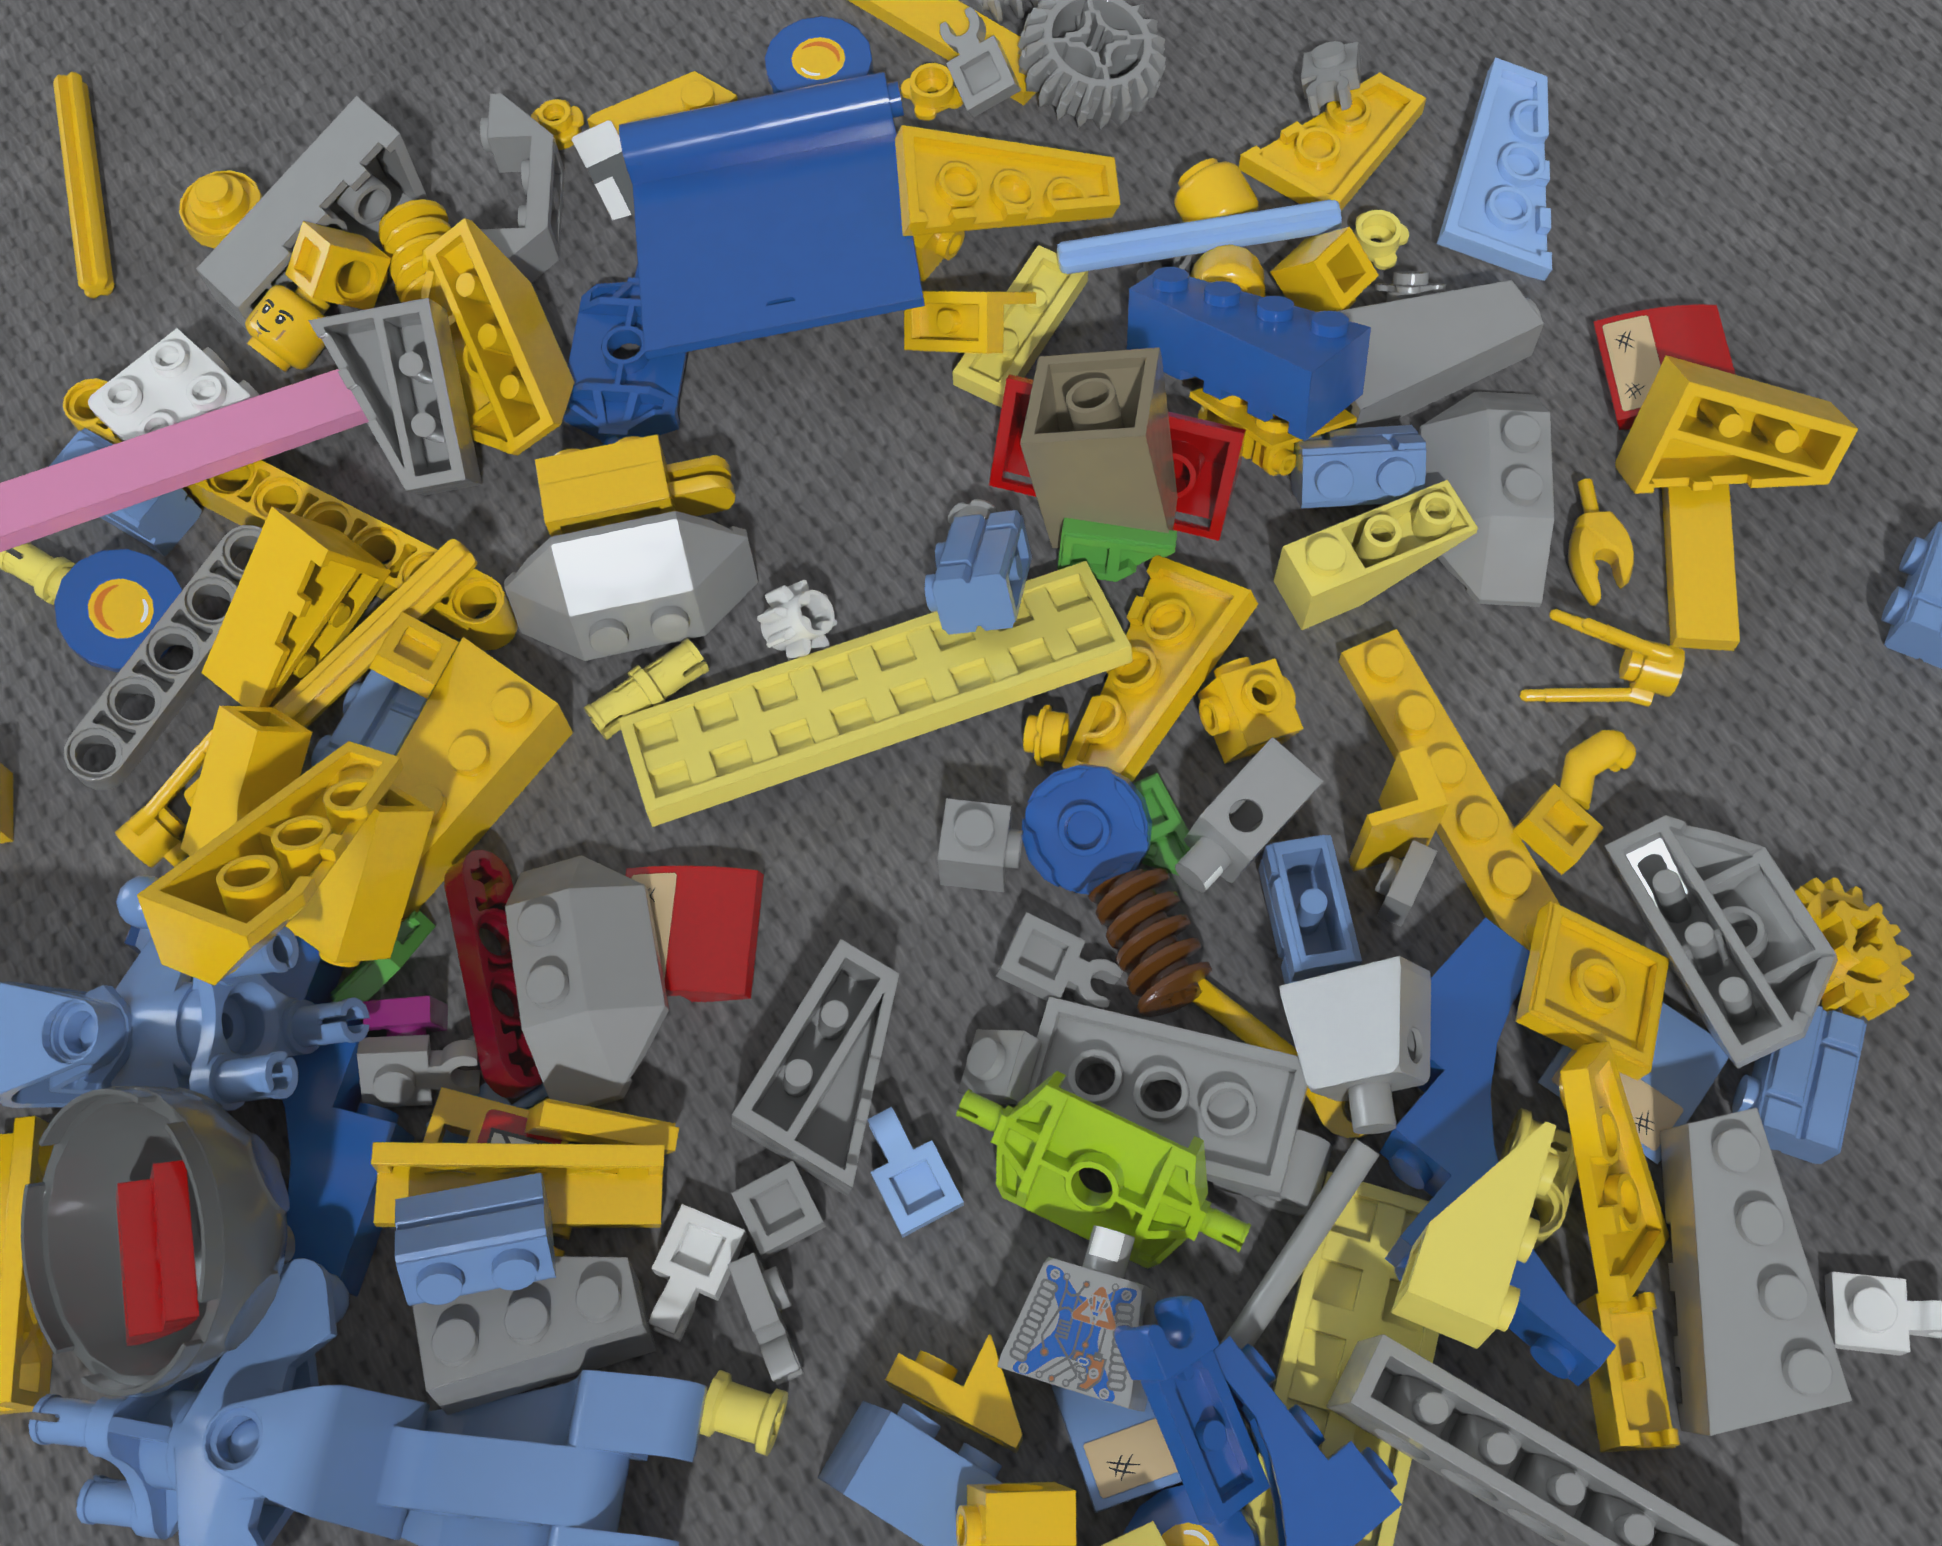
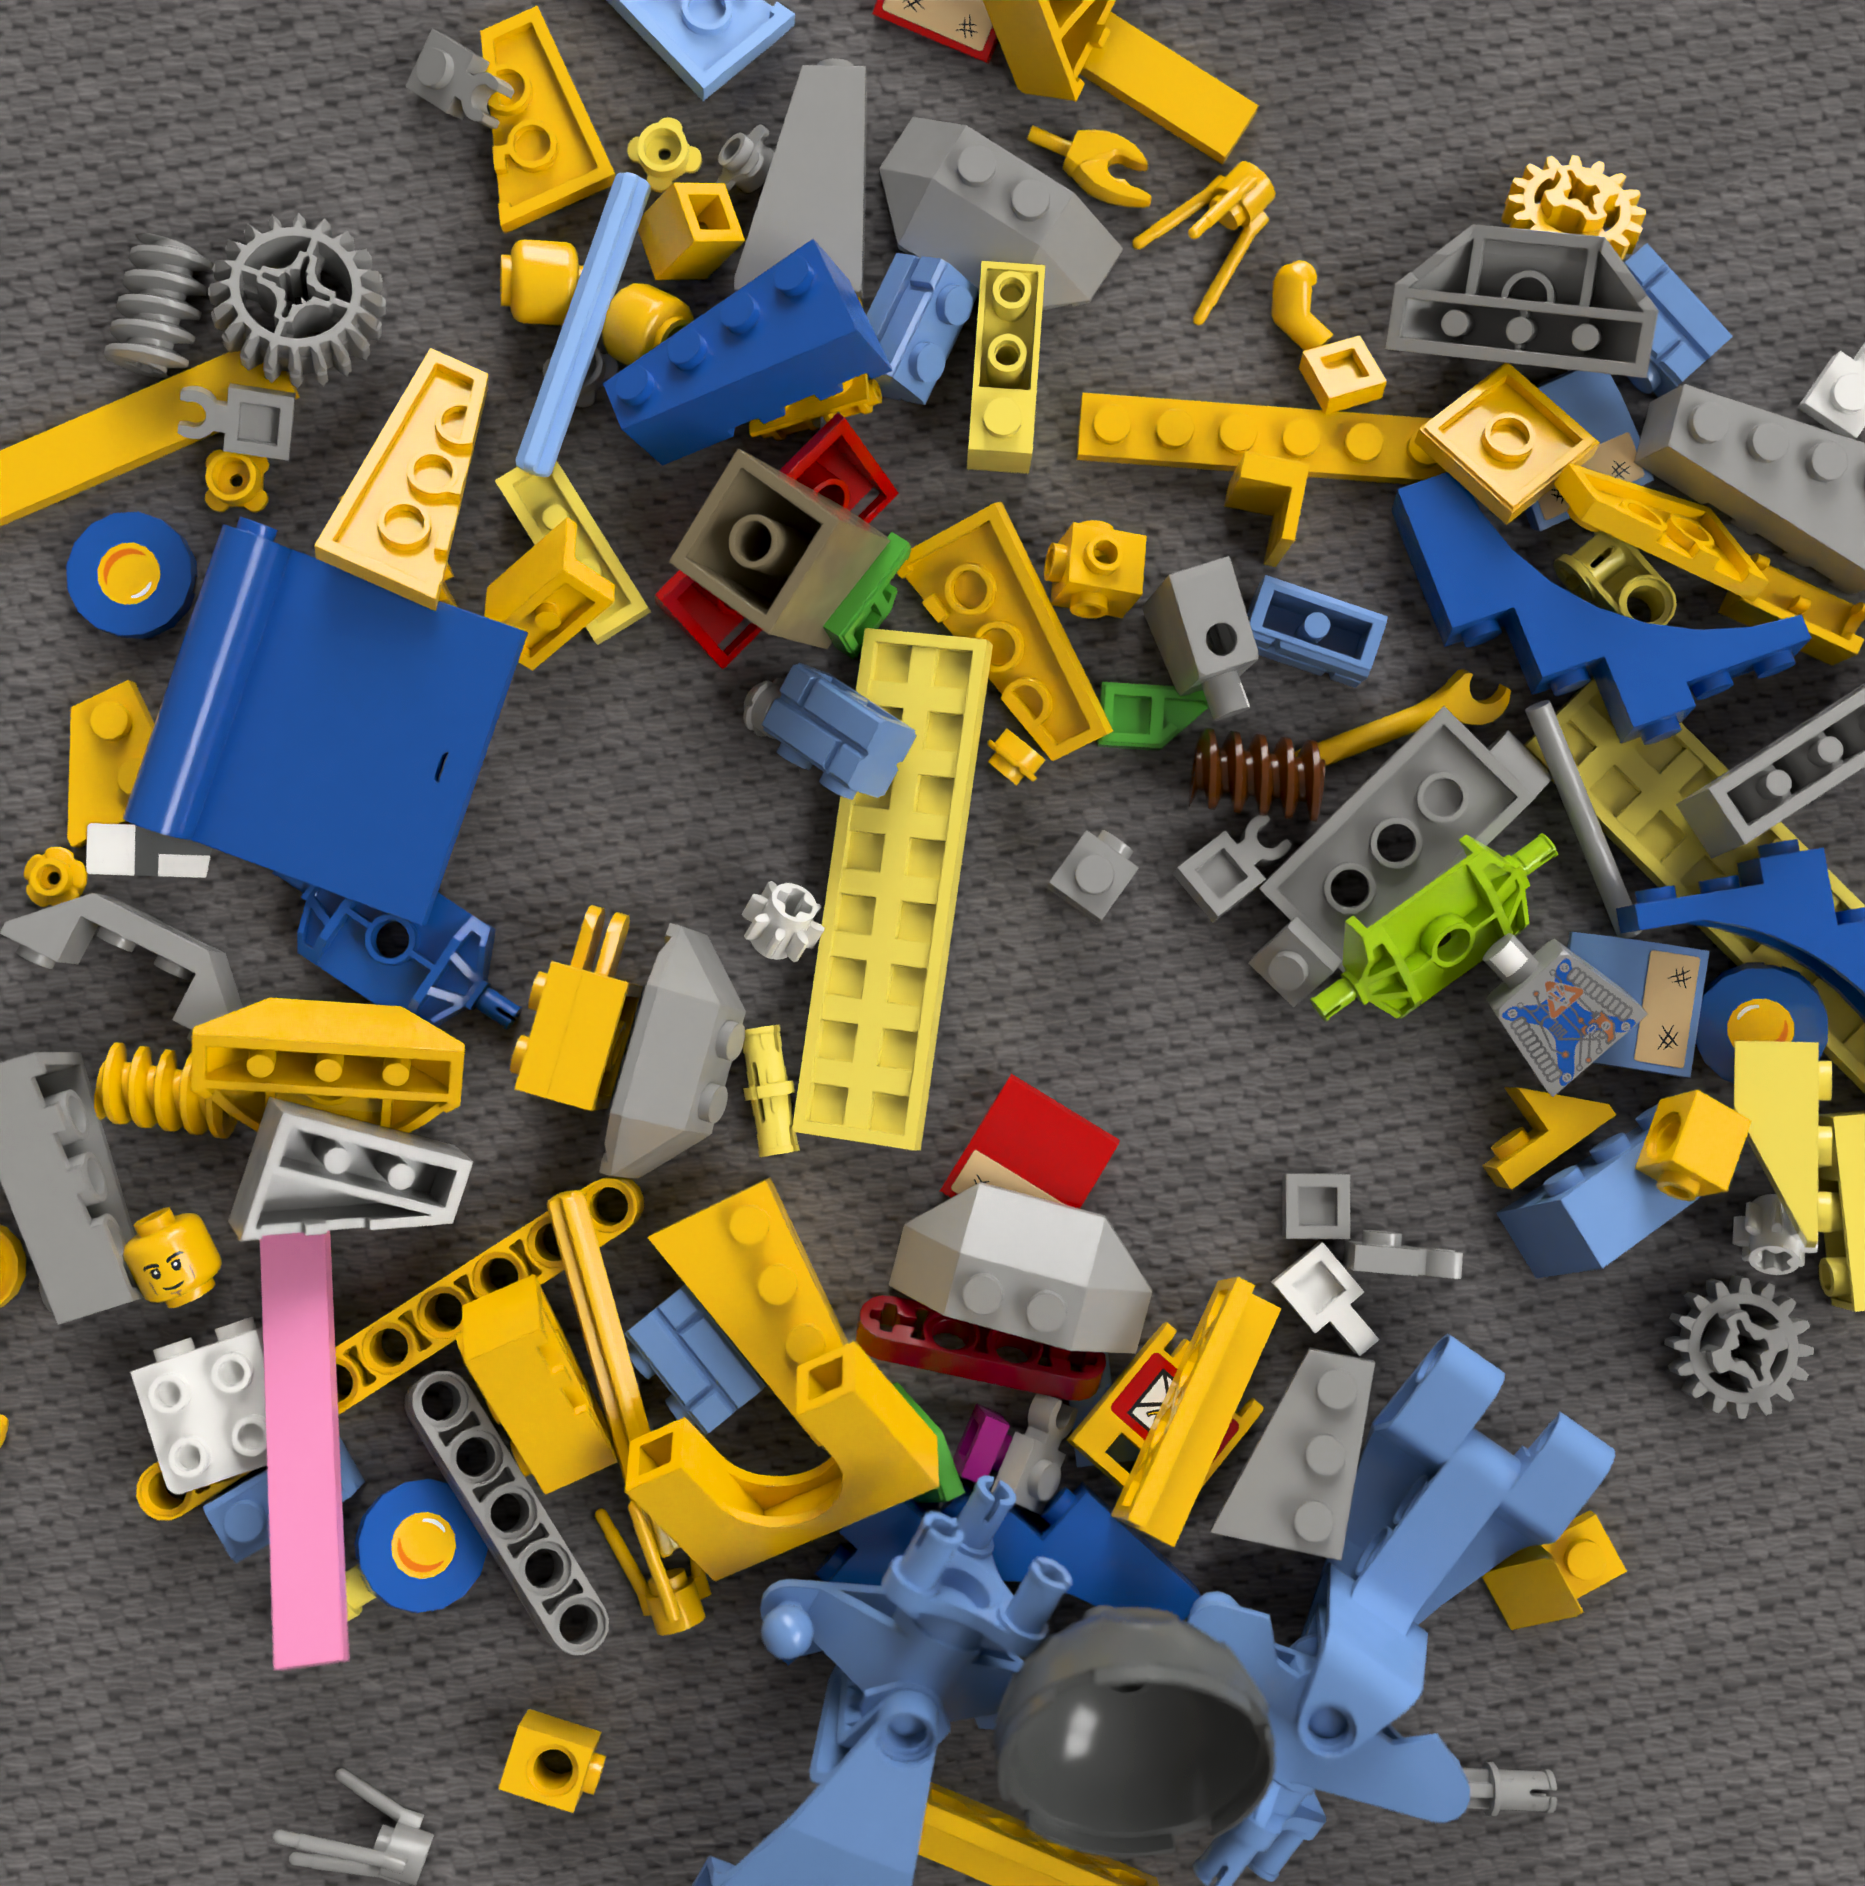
camera: 70 degrees left, 20 degrees up
(157, 1254) = (1158, 1736): red slope -> none
(264, 867) = (883, 1503): yellow wedge -> none
(321, 255) = (139, 1181): yellow brick -> none
(414, 655) = (648, 1290): yellow plate -> none
(474, 1239) = (1244, 1469): medium blue brick -> none
(598, 1126) = (1181, 1321): yellow tile -> none
(743, 1412) = (1466, 1310): light yellow bush -> none
(822, 1071) = (1226, 1110): light grey wedge -> none
(913, 1181) = (1351, 1083): light blue plate -> none
(1086, 827) = (1128, 773): blue tile -> none
(1194, 1407) = (1672, 962): blue plate -> none
(1363, 1036) = (1458, 658): torso -> none
(1402, 882) = (1321, 534): light grey plate -> none
(1468, 1252) = (1681, 677): light yellow slope -> none

